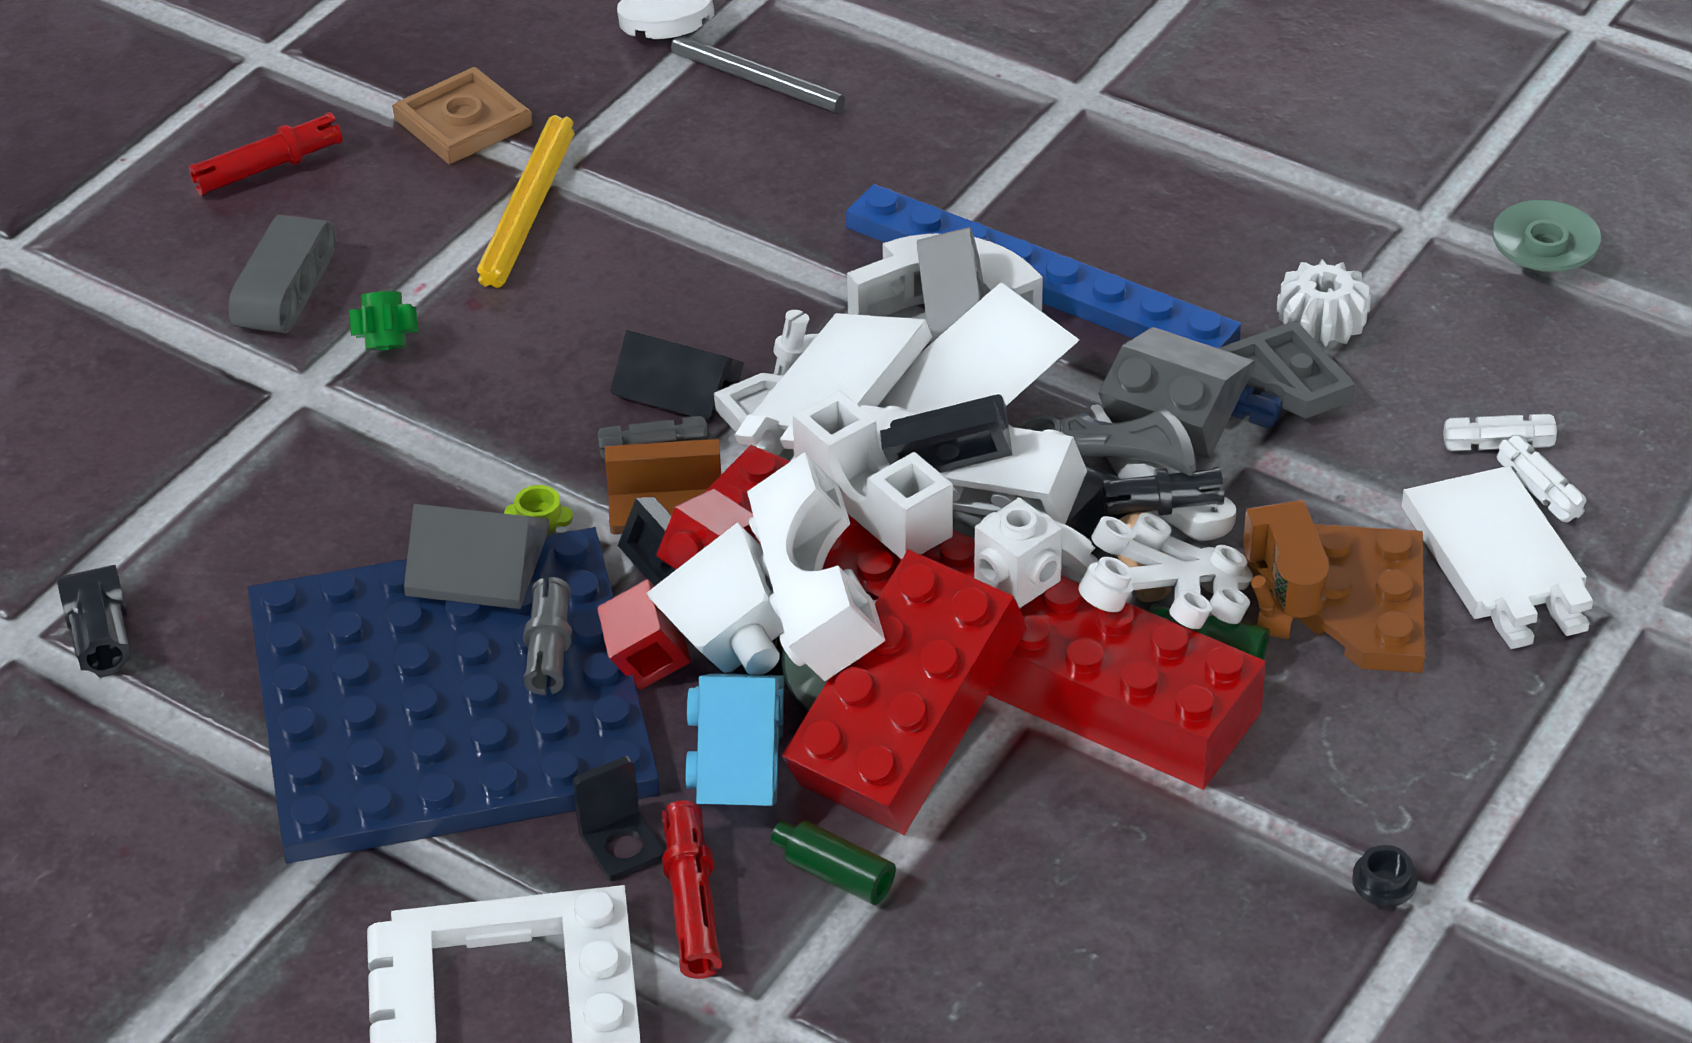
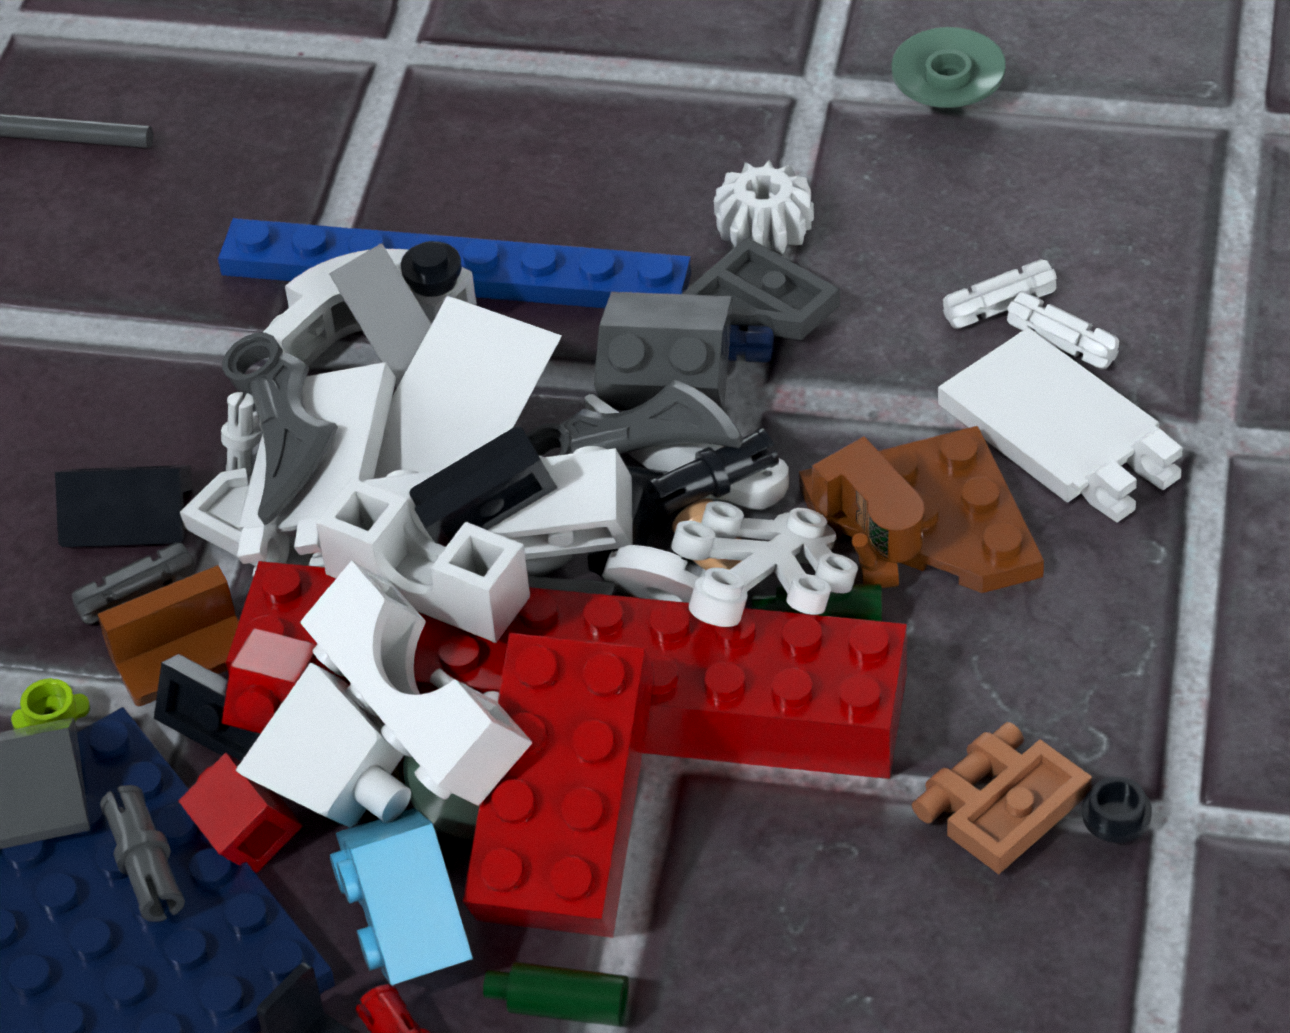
camera: 20 degrees left, 5 degrees up
(823, 353) = (291, 436): none -> dark grey piece
(1007, 262) = (431, 268): none -> black plate
(1018, 551) = (613, 593): white brick -> none
(1295, 844) = (1015, 807): none -> nougat plate

